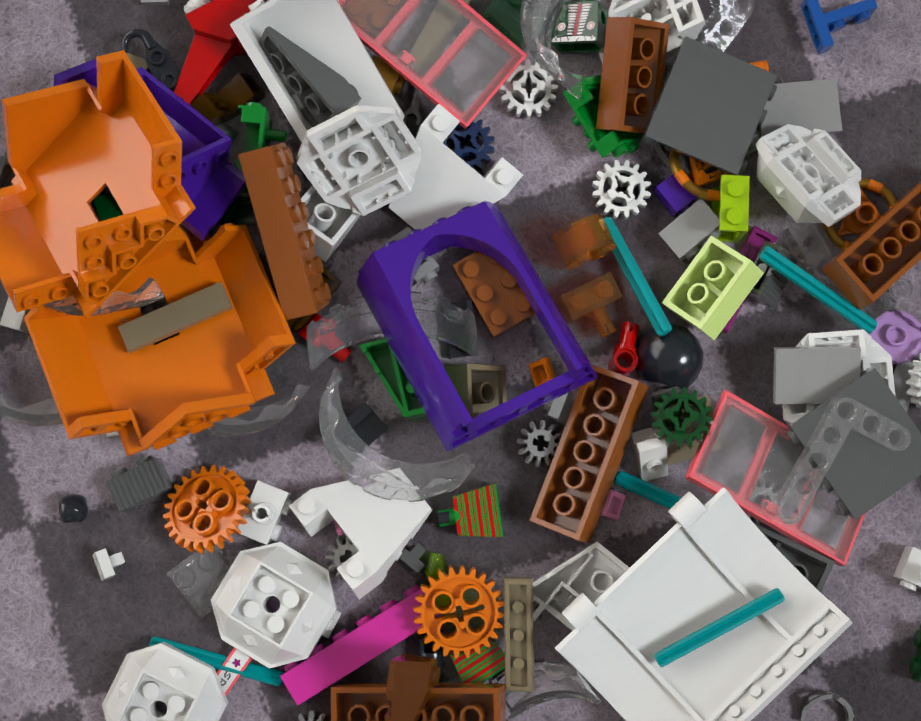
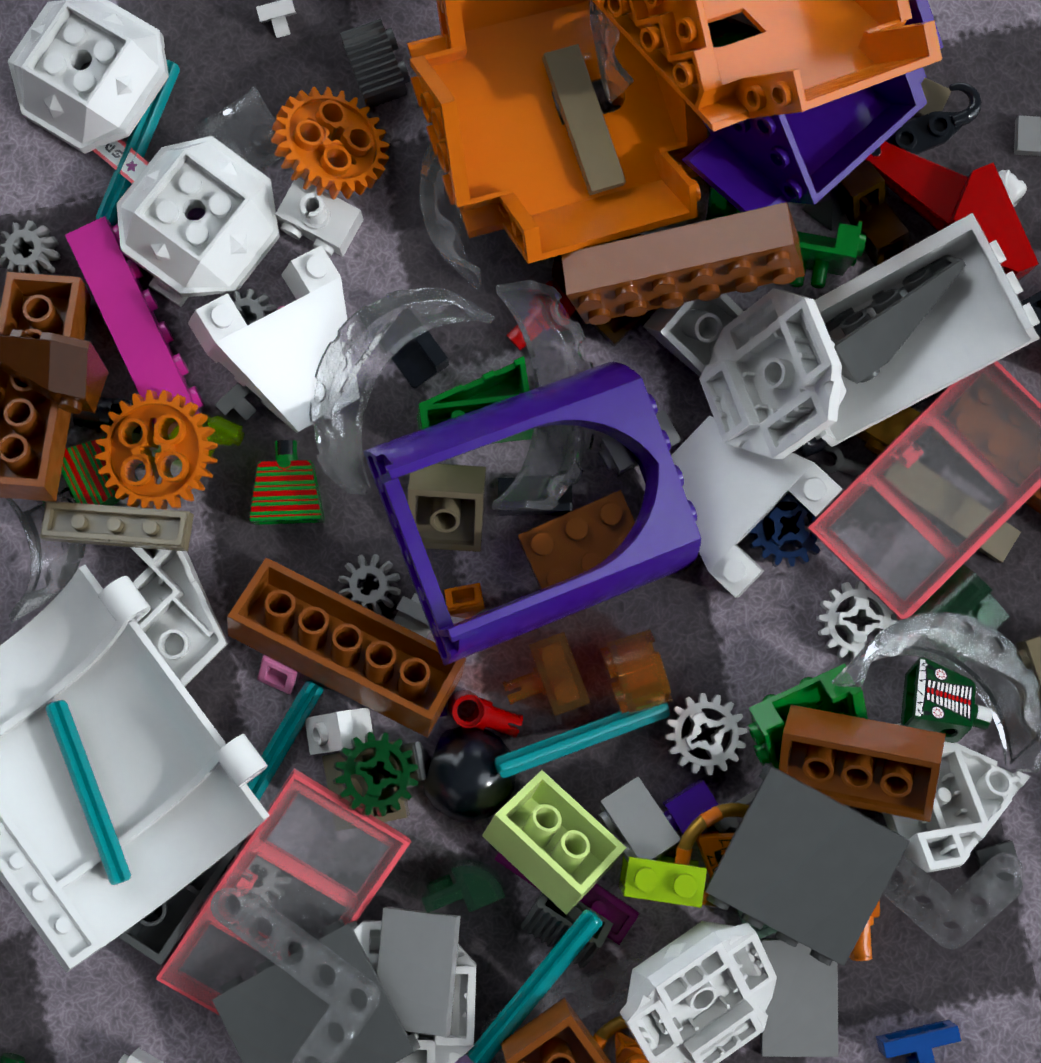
camera: 95 degrees right, 0 degrees up
(748, 344) = (473, 882): none -> clear green brick

